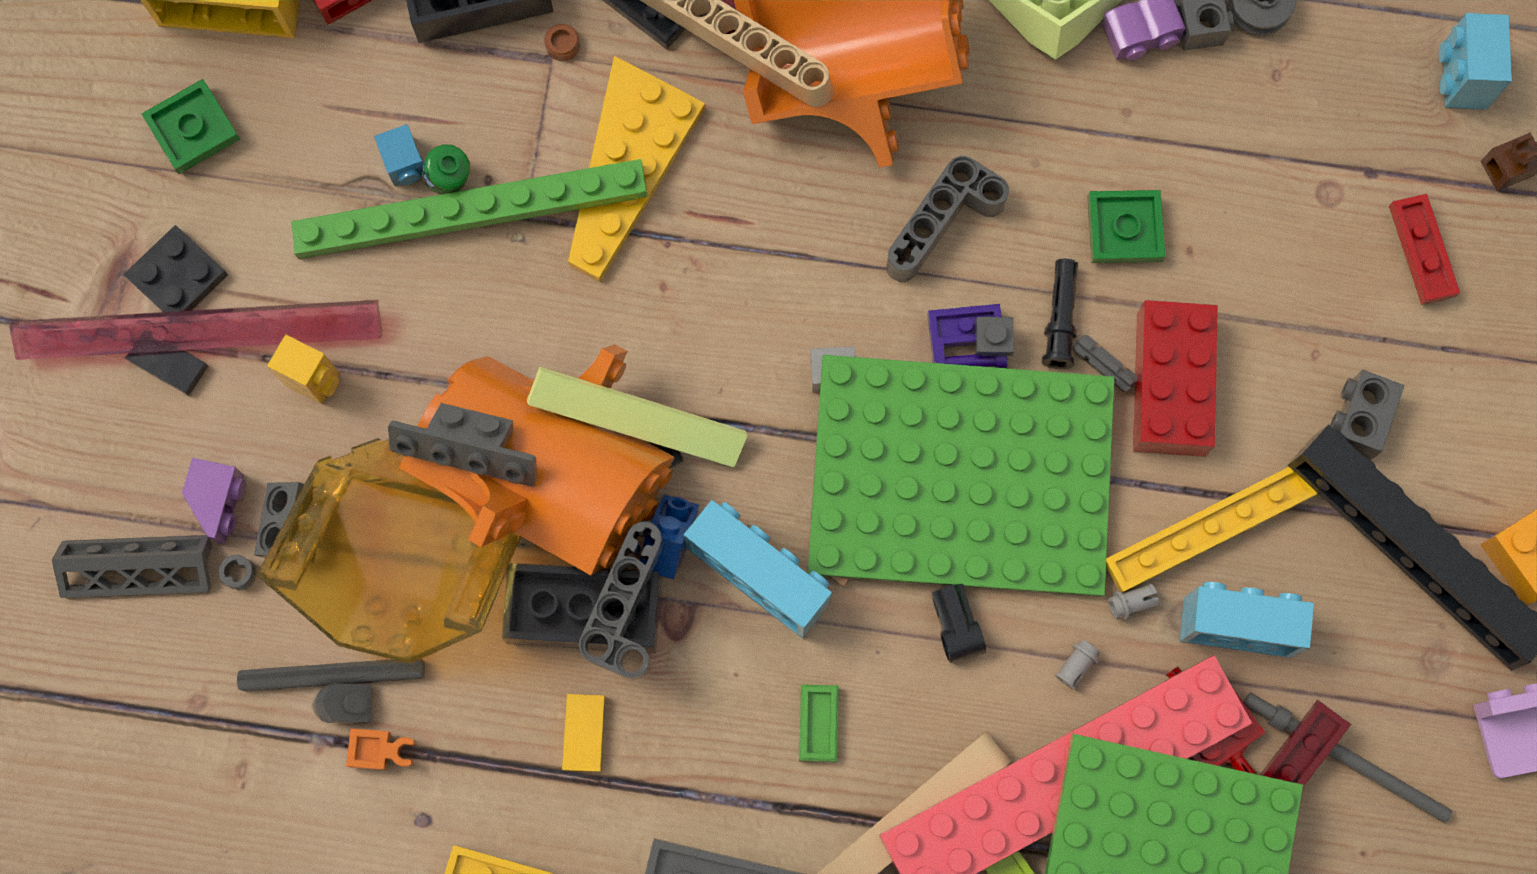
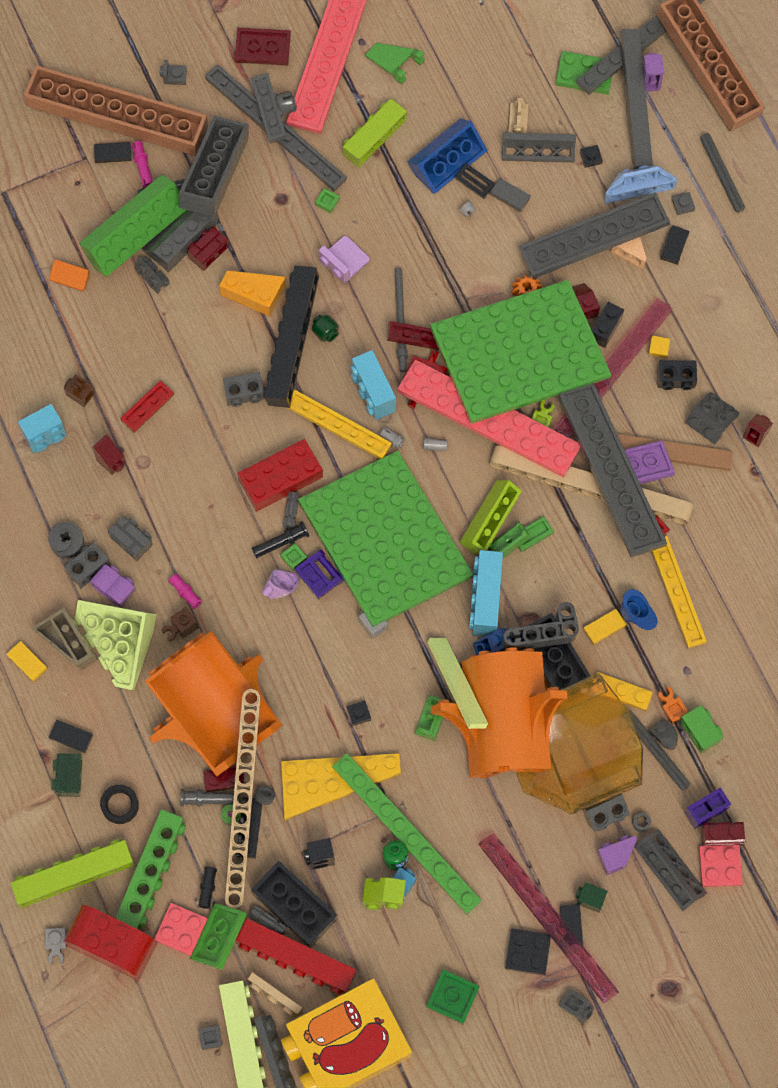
camera: 125 degrees left, 5 degrees down
(45, 287) = (577, 1006): none -> dark grey bracket
(84, 648) = (720, 866): none -> coral plate
(121, 681) = (723, 834): none -> dark red brick
(175, 683) = (707, 808): none -> dark purple brick
(180, 414) = (591, 897): none -> dark green brick
(304, 369) = (534, 849): yellow brick -> none
(306, 768) = (701, 729): none -> bright green brick
(397, 111) = (383, 892): none -> lime brick
(460, 686) = (628, 693): none -> yellow plate
(465, 442) = (522, 735): dark grey bracket -> none
(521, 61) = (319, 854): none -> black brick
(562, 42) = (292, 850): dark orange tile -> none
(565, 802) = (637, 610): none -> blue piece
(638, 374) = (429, 724): none -> bright green hinge
(669, 49) = (264, 795): none -> dark grey tile
(703, 261) = (358, 713): none -> black plate
(828, 671) = (510, 540): none -> bright green hinge
(888, 666) = (490, 516): none -> lime brick
(938, 220) = (272, 618): dark grey beam -> none
(959, 633) = (454, 498): black piece -> none
(986, 265) = (280, 584): none -> lavender hat
(994, 336) = (313, 560): dark grey plate -> none
(1015, 86) = (182, 623): none -> reddish brown brick
(1026, 319) = (293, 556): none -> bright green tile
(1067, 125) = (185, 591): none -> dark pink pin
(1126, 226) = (219, 537): green plate -> none
(1207, 95) = (130, 537): none -> dark grey brick
(1370, 135) = (109, 455): none -> dark red slope
(1403, 616) = (325, 328): none -> dark green head

